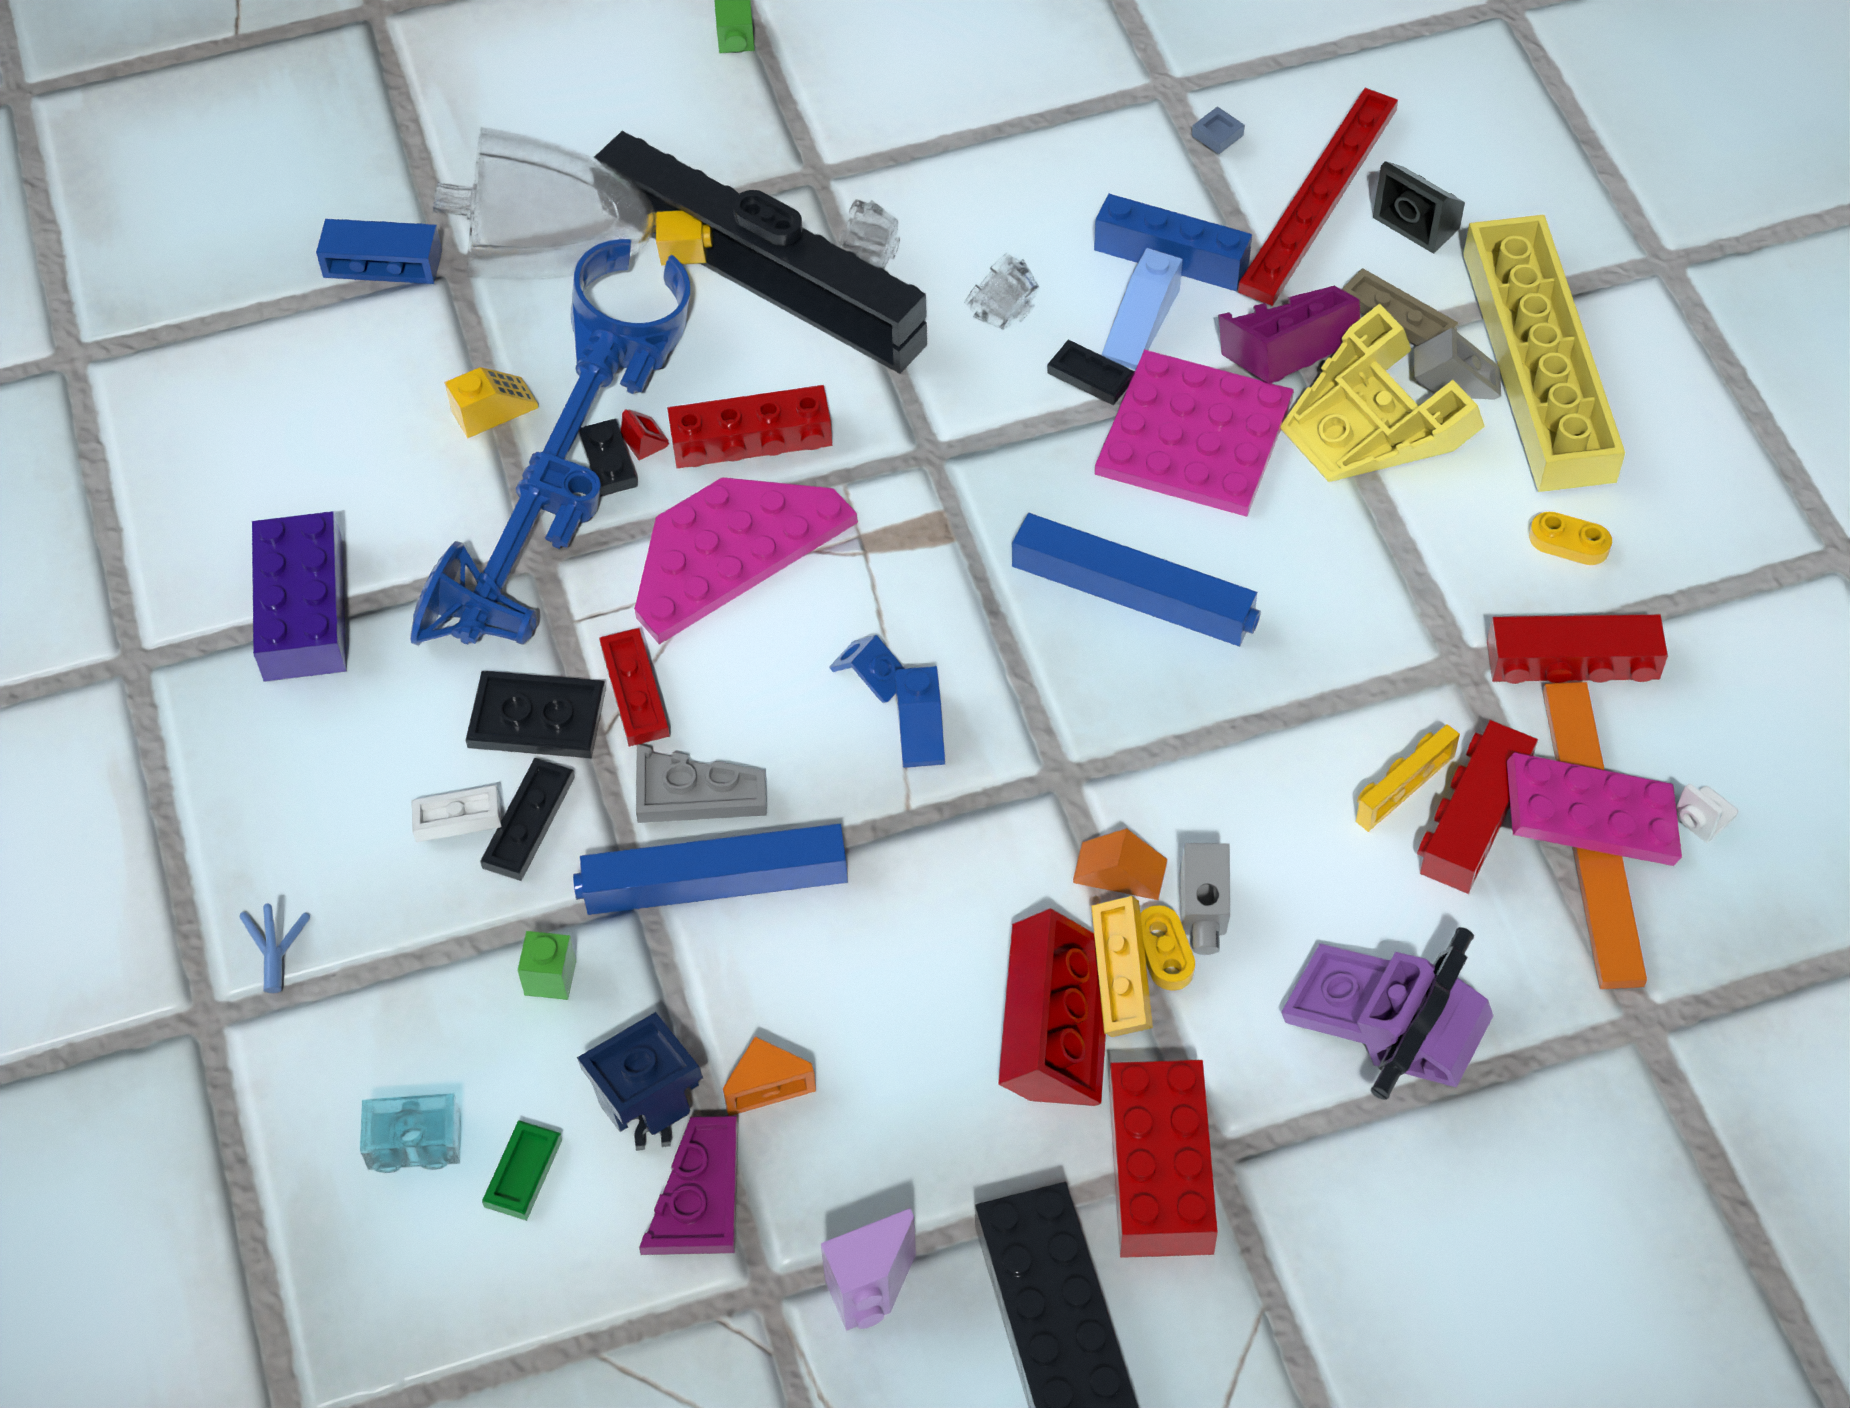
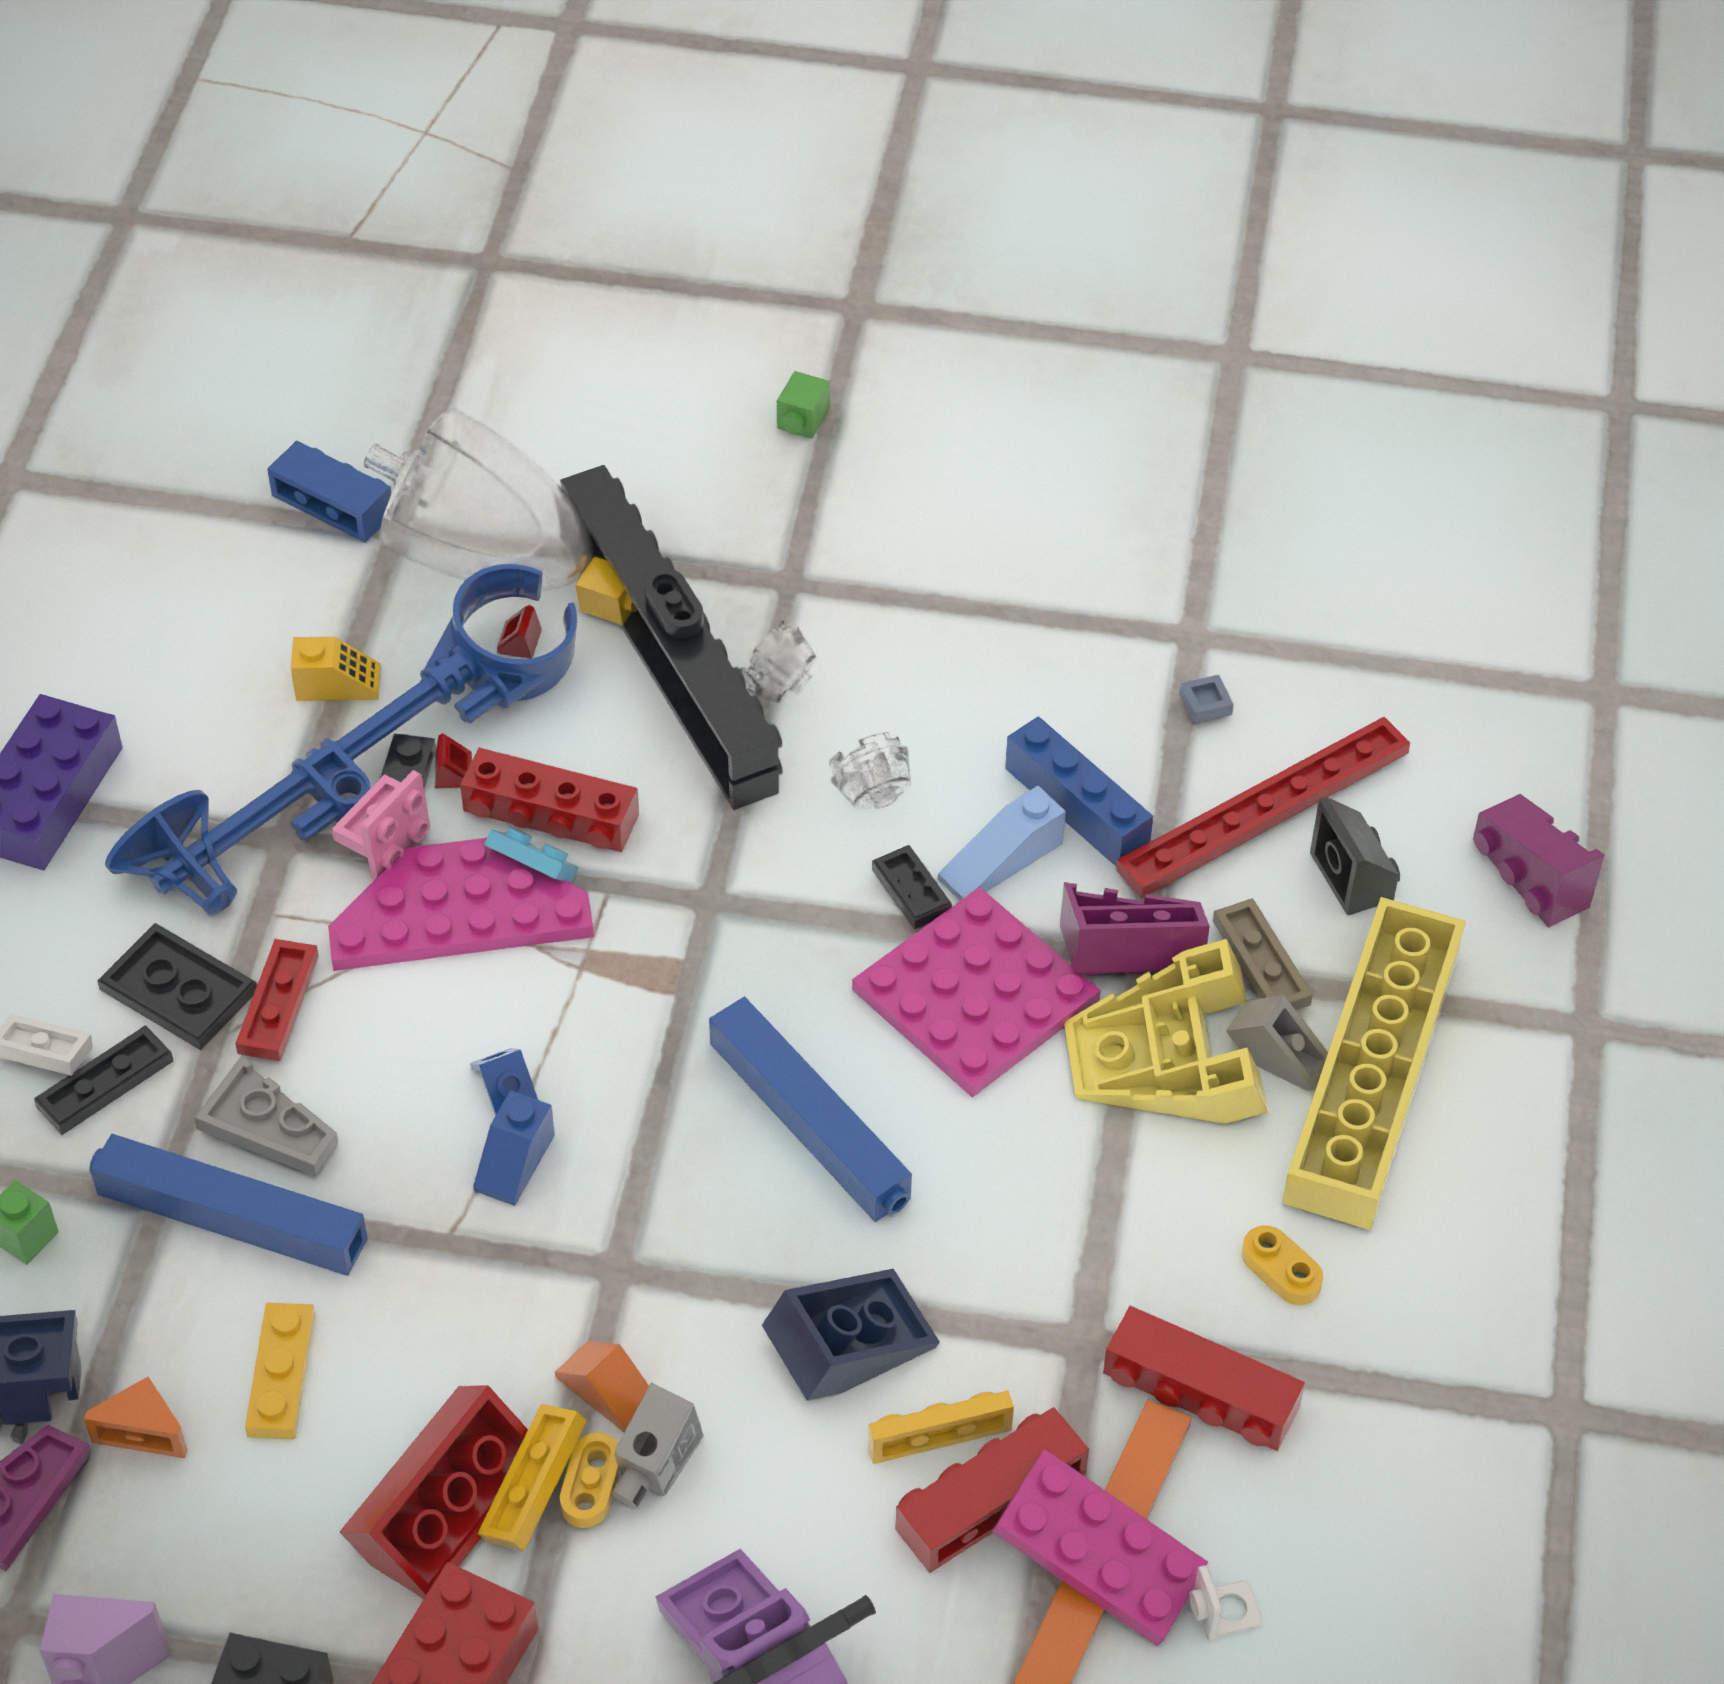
camera: 25 degrees right, 5 degrees down
(624, 302) = (520, 634): none -> red slope
(629, 500) = (385, 821): none -> bright pink bracket
(783, 476) = (518, 847): none -> medium azure plate
(849, 983) = (280, 1371): none -> yellow plate
(1285, 739) = (847, 1331): none -> dark blue slope
(1553, 147) = (1538, 859): none -> magenta wedge

